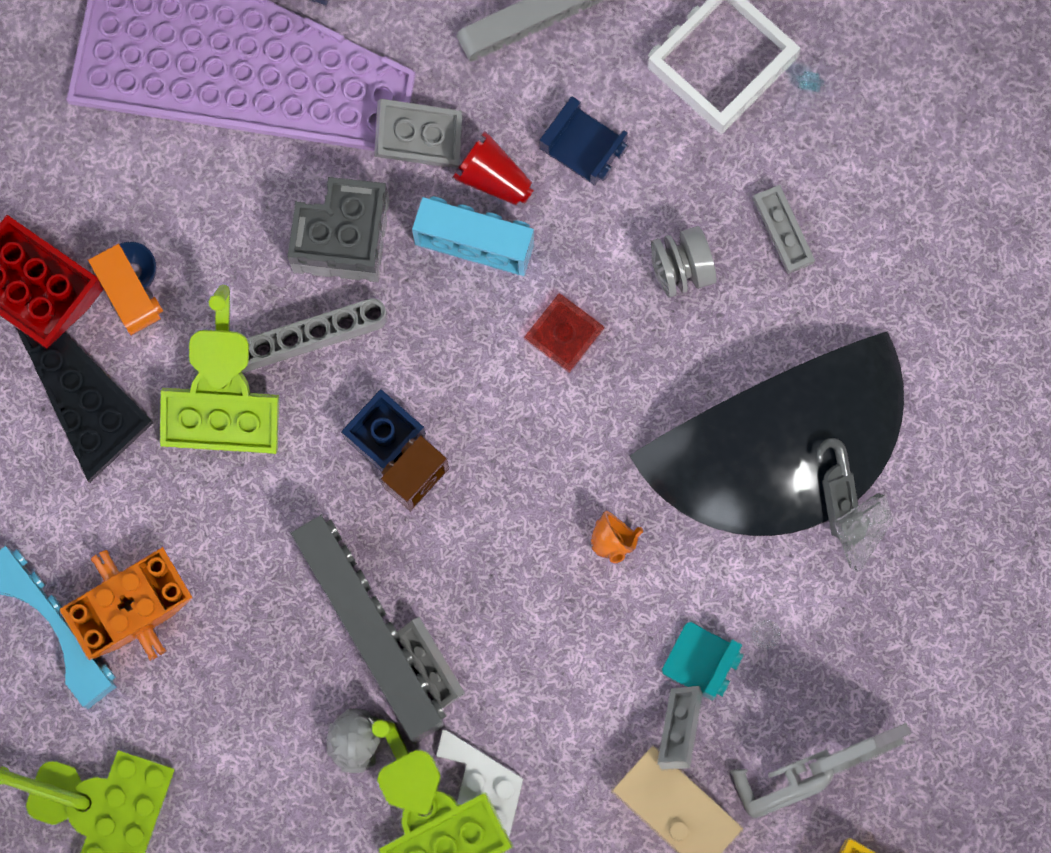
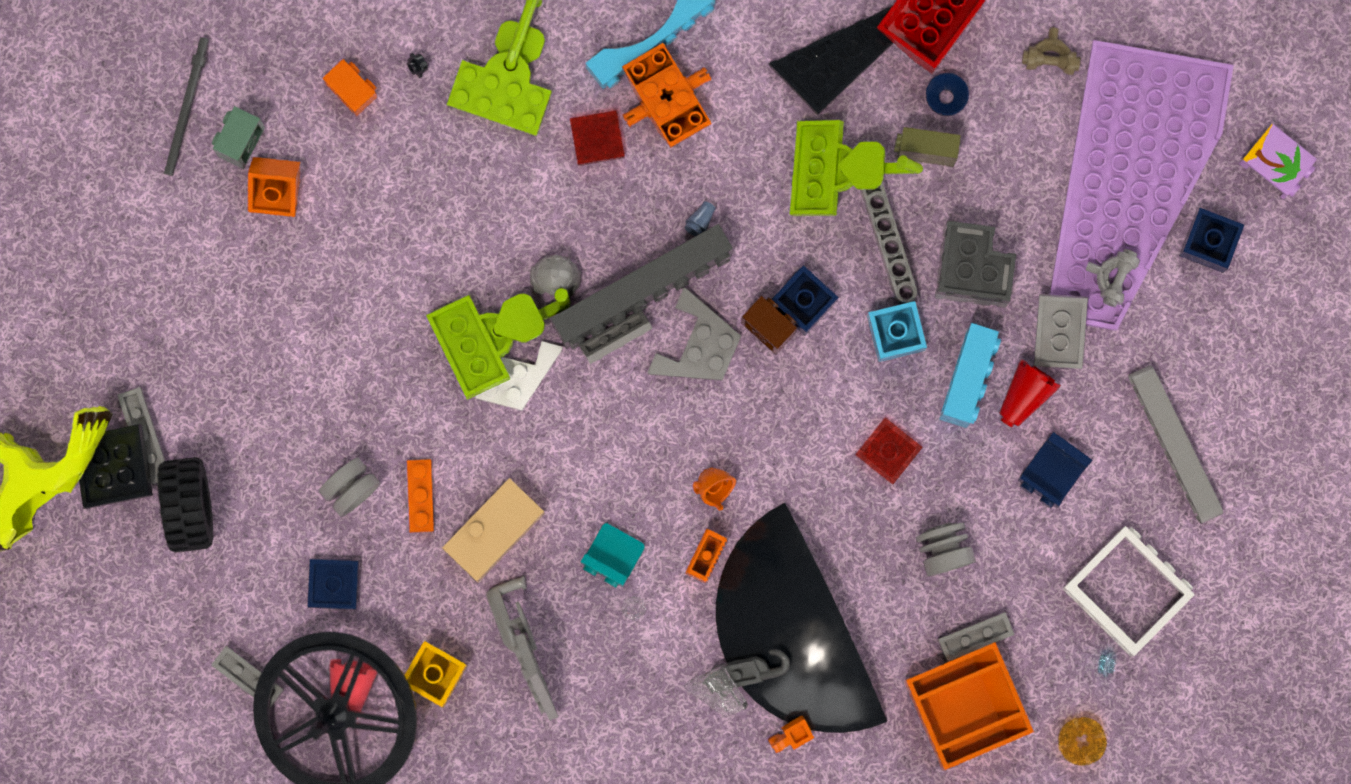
camera: 85 degrees right, 5 degrees up
(91, 130) = (1066, 61): none -> dark tan piece
(125, 290) = (925, 90): orange door -> none
(178, 691) = (597, 138): none -> clear red plate
(194, 287) = (928, 146): none -> olive brick
(283, 562) = (700, 219): none -> sand blue cone
(372, 73) = (1112, 293): none -> light grey piece
(421, 322) = (896, 331): none -> medium azure brick
(443, 550) = (707, 349): none -> light grey wing
(680, 728) = (557, 534): light grey plate -> none
(700, 545) = (706, 556): none -> orange brick
(869, 234) = (968, 706): none -> orange slope
(905, 124) = (1095, 737): none -> clear yellow plate
(911, 438) = (795, 734): none -> orange plate

